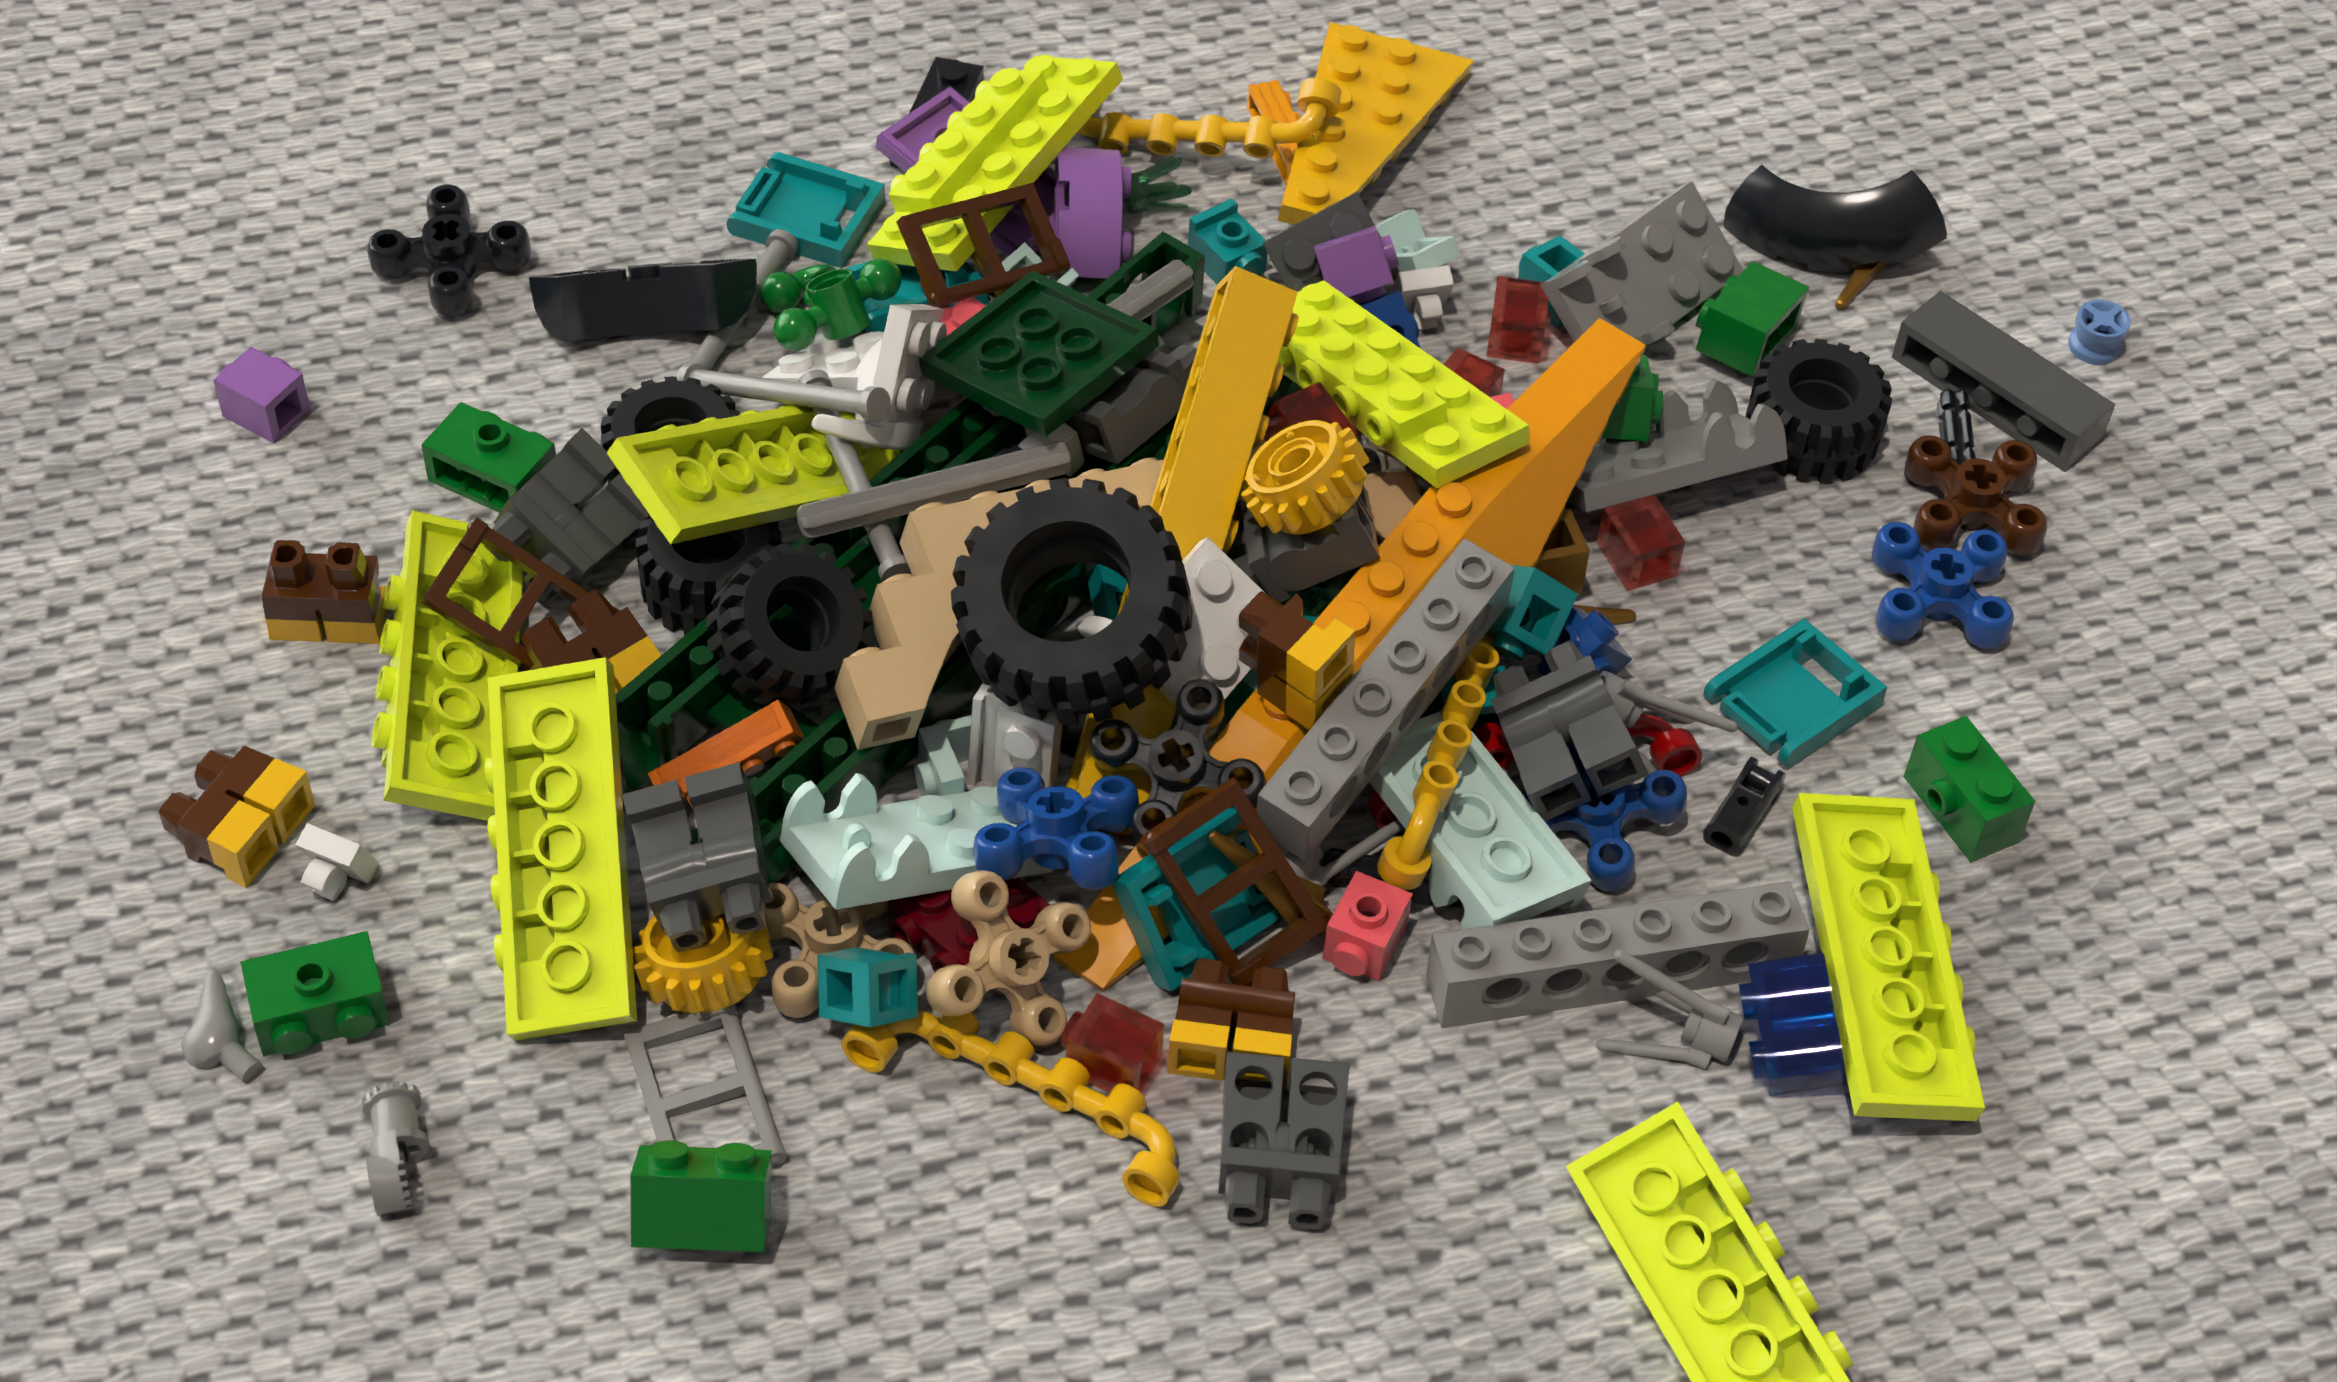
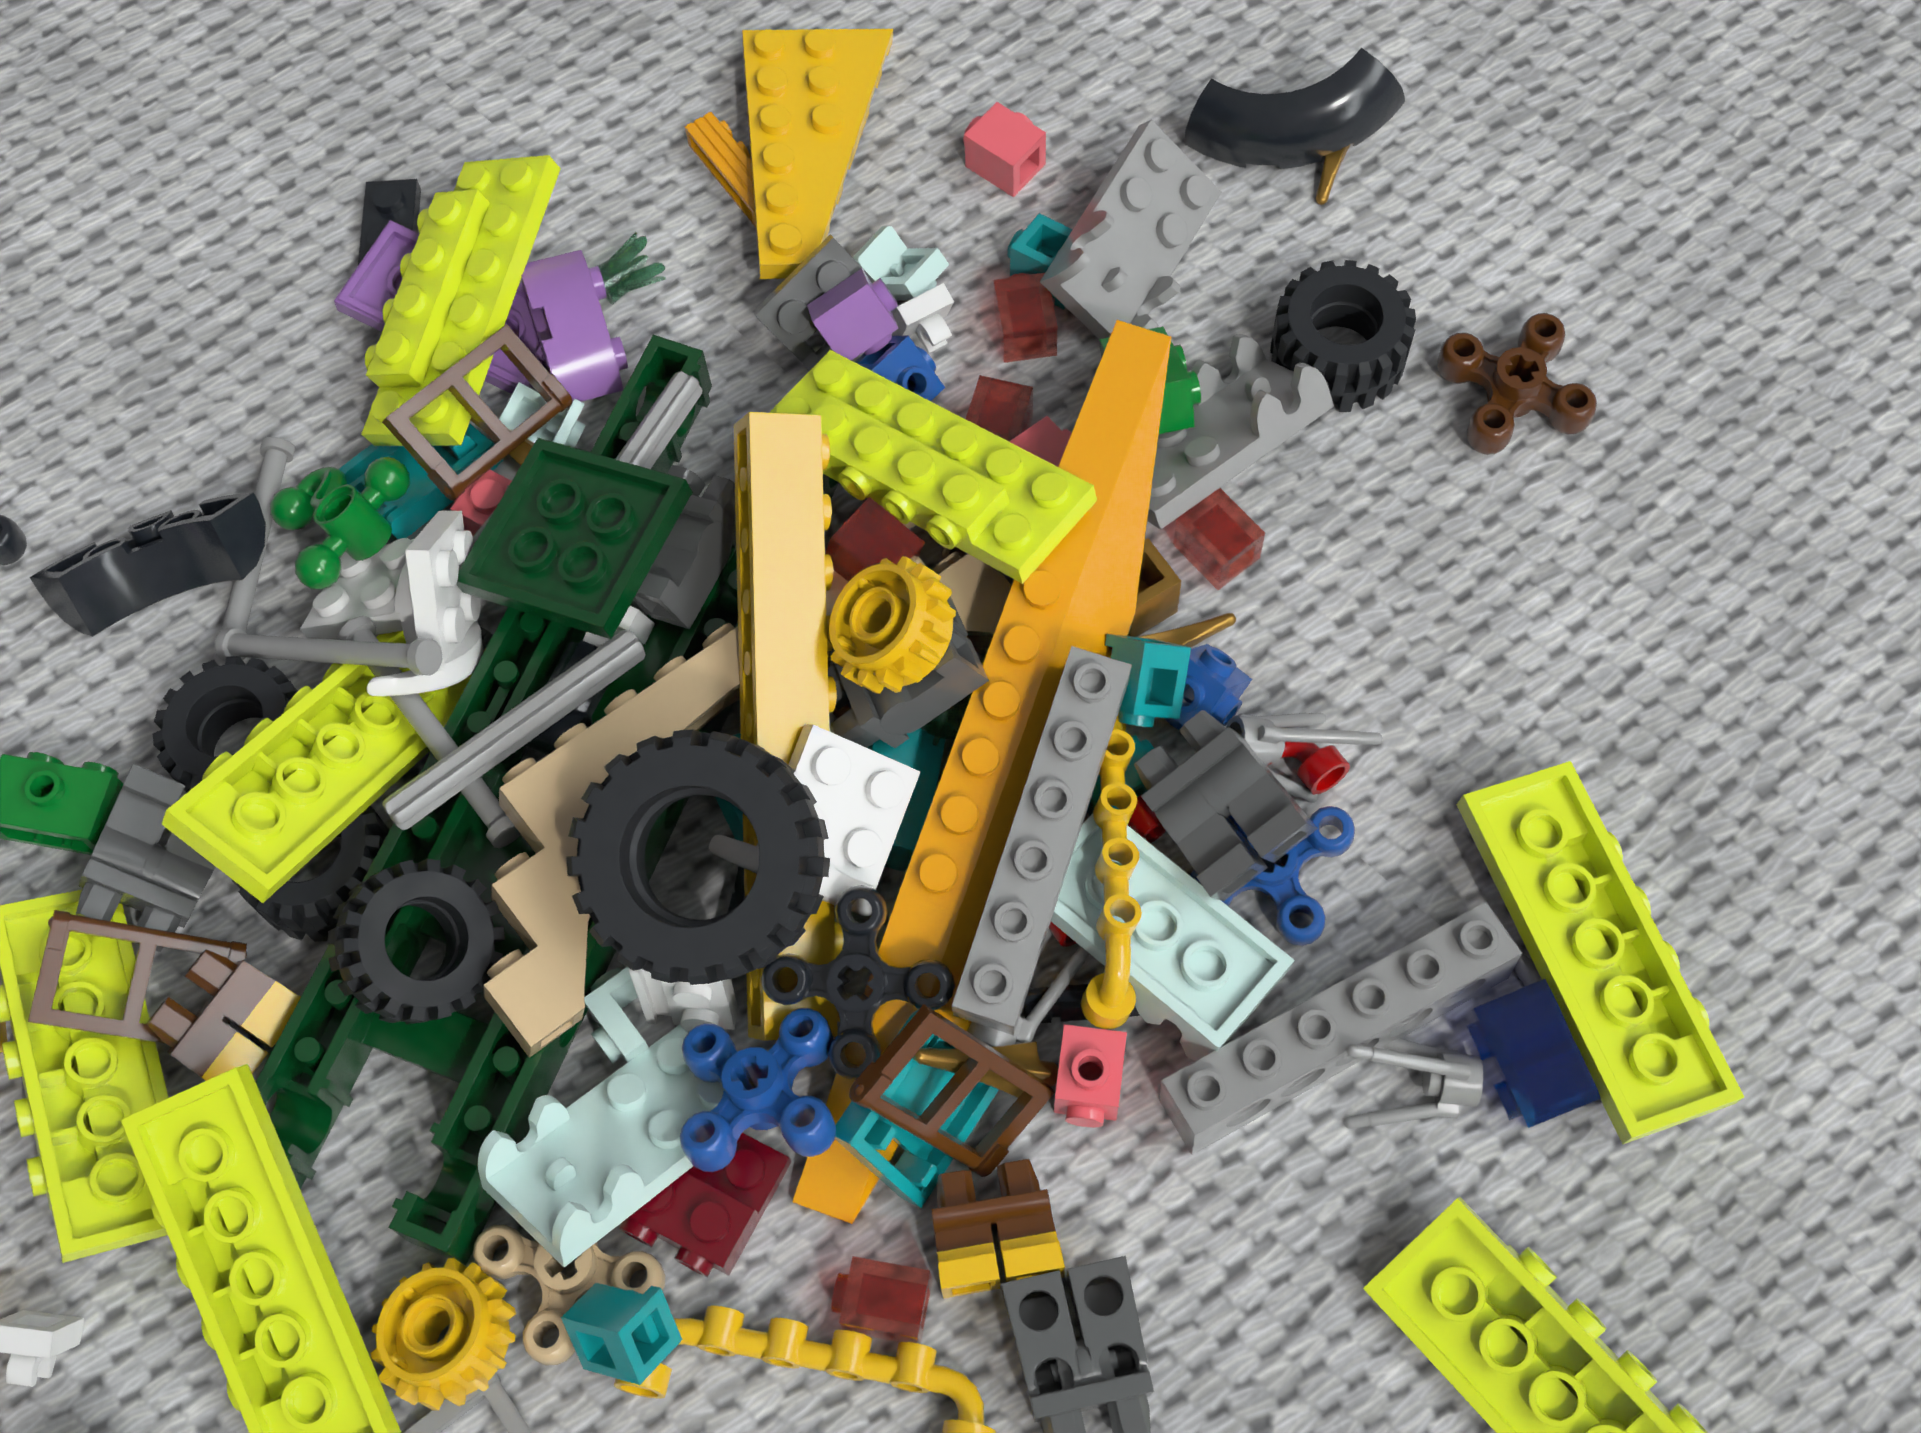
camera: 10 degrees left, 15 degrees up
(706, 878) = (406, 1251): dark grey hips -> none
(751, 742) = (398, 1092): orange piece -> none
(808, 206) = (289, 398): teal container -> none
(1008, 958) = (711, 1209): tan gear -> none
(1226, 241) = (718, 318): teal brick -> none
(1294, 659) = (944, 848): hips -> none
(1316, 99) = (667, 196): yellow bar -> none
(1546, 181) = (1004, 148): none -> coral brick
(1743, 807) = (1404, 811): black bar -> none
(1750, 317) = (1246, 248): green brick -> none
(1786, 704) = (1406, 673): teal container -> none
(1942, 585) = (1516, 496): blue gear -> none
(1956, 424) = (1474, 309): black axle -> none
(1968, 789) = (1612, 724): green brick -> none
(2003, 380) = (1502, 244): dark grey brick -> none
(2099, 332) = (1573, 146): medium blue wheel -> none

